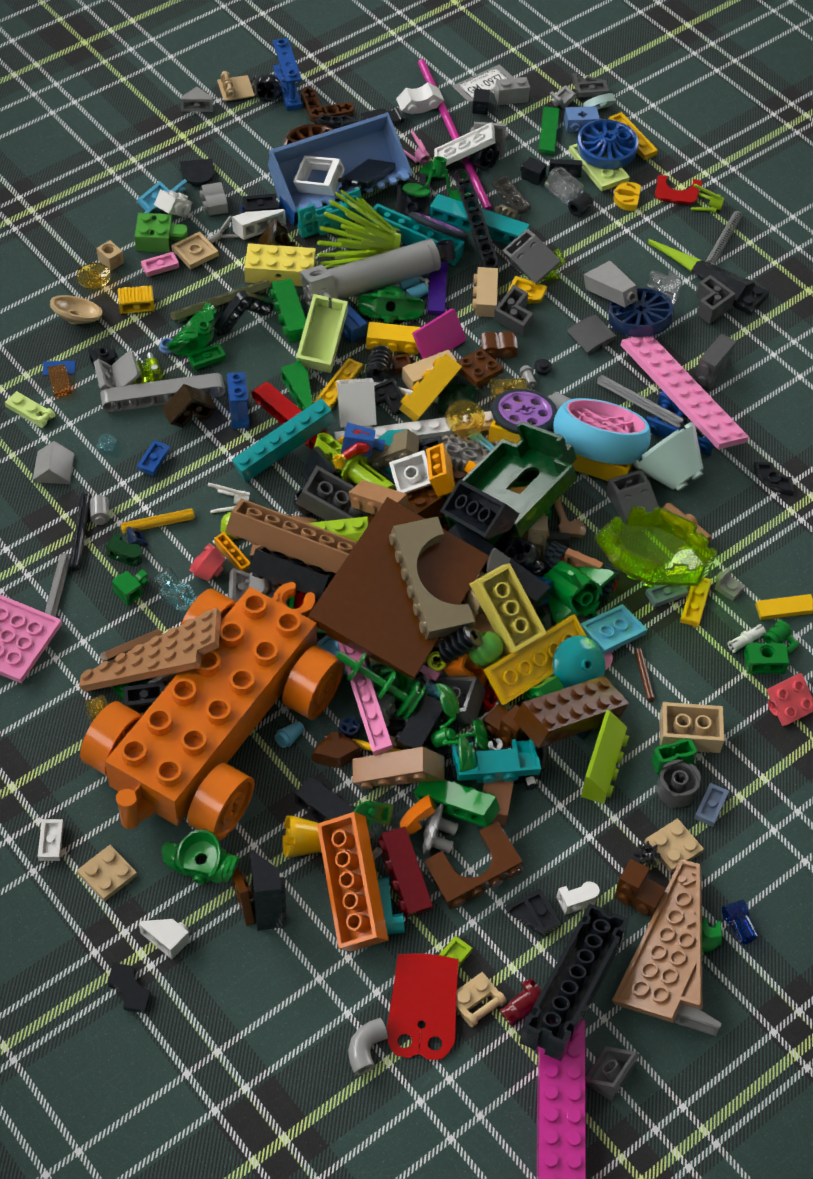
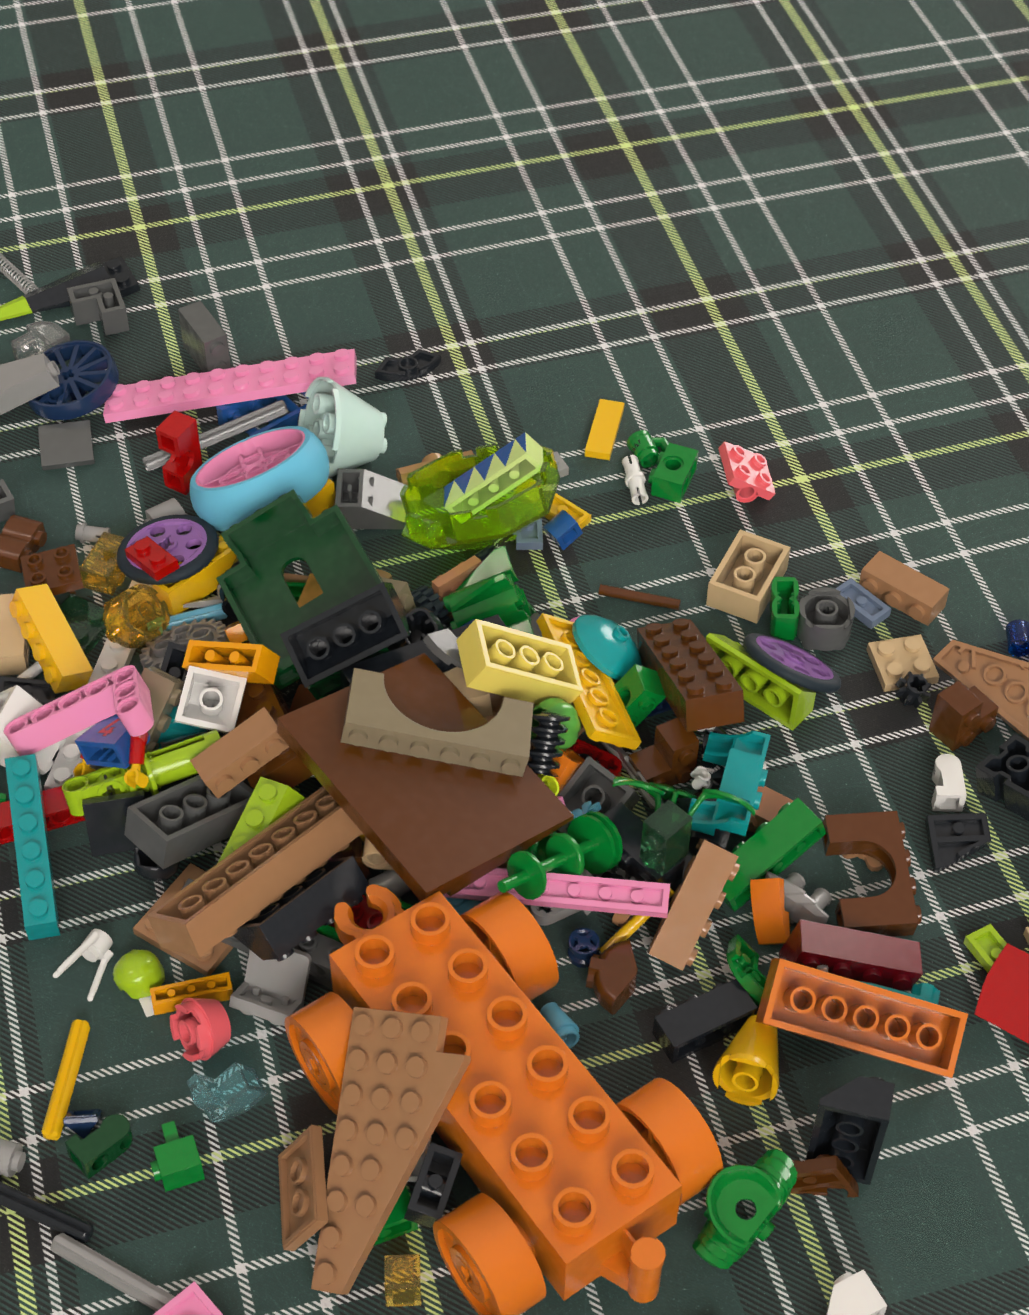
camera: 65 degrees left, 5 degrees down
(373, 423) = (117, 693): none -> bright pink beam
(416, 727) = (665, 837): none -> clear green brick
(507, 405) = (152, 558): none -> red plate
(542, 366) = (85, 512): black plate -> none
(606, 381) = (180, 438): none -> red arch
(611, 789) = (792, 663): none -> wedge
(614, 628) = (562, 593): medium azure plate -> none
(673, 548) = (494, 476): none -> yellowish green brick
(673, 610) = (563, 529): none -> blue brick
(738, 826) = (904, 588): none -> medium nougat brick

